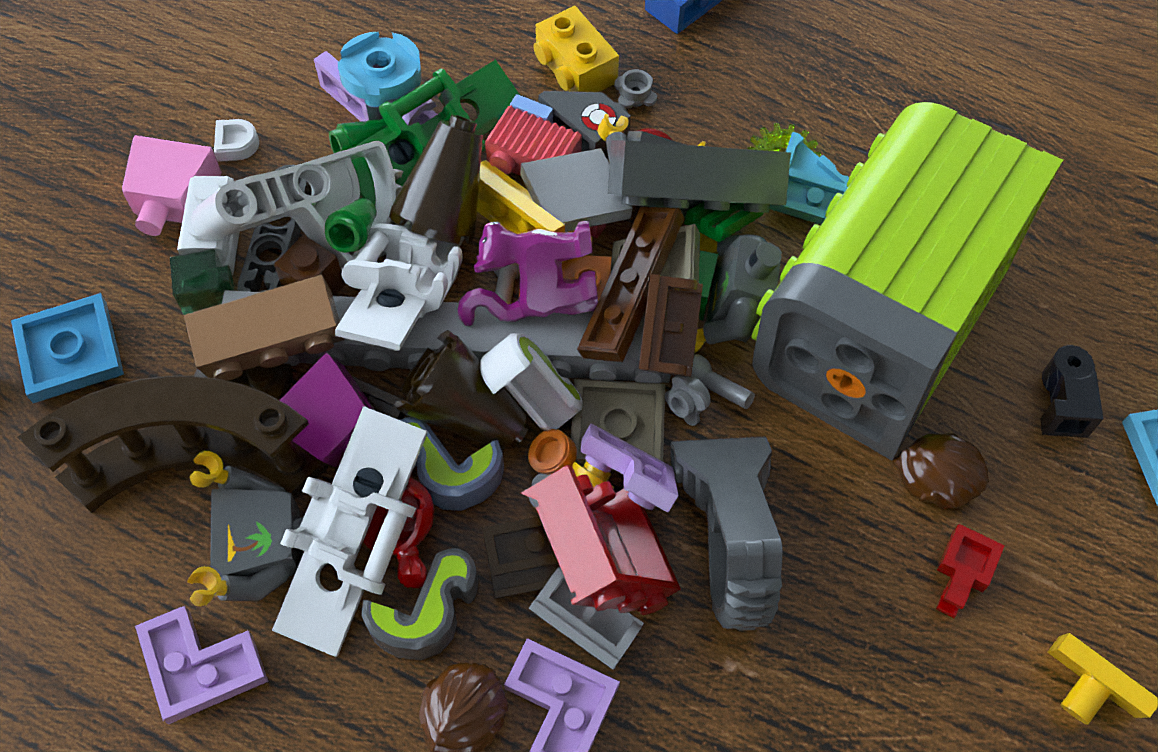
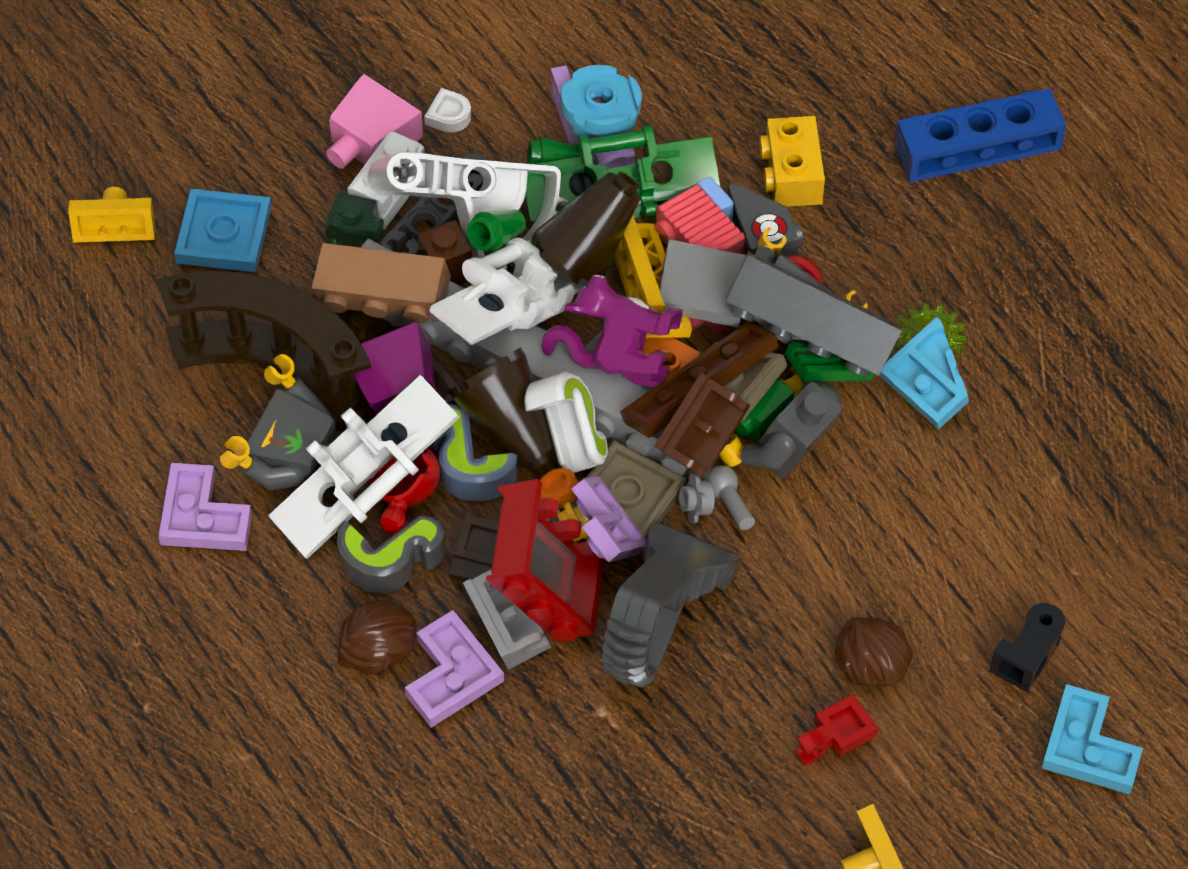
camera: 30 degrees right, 5 degrees down
(635, 89) = (830, 209): light grey plate -> none
(899, 272) = (925, 476): piece -> none

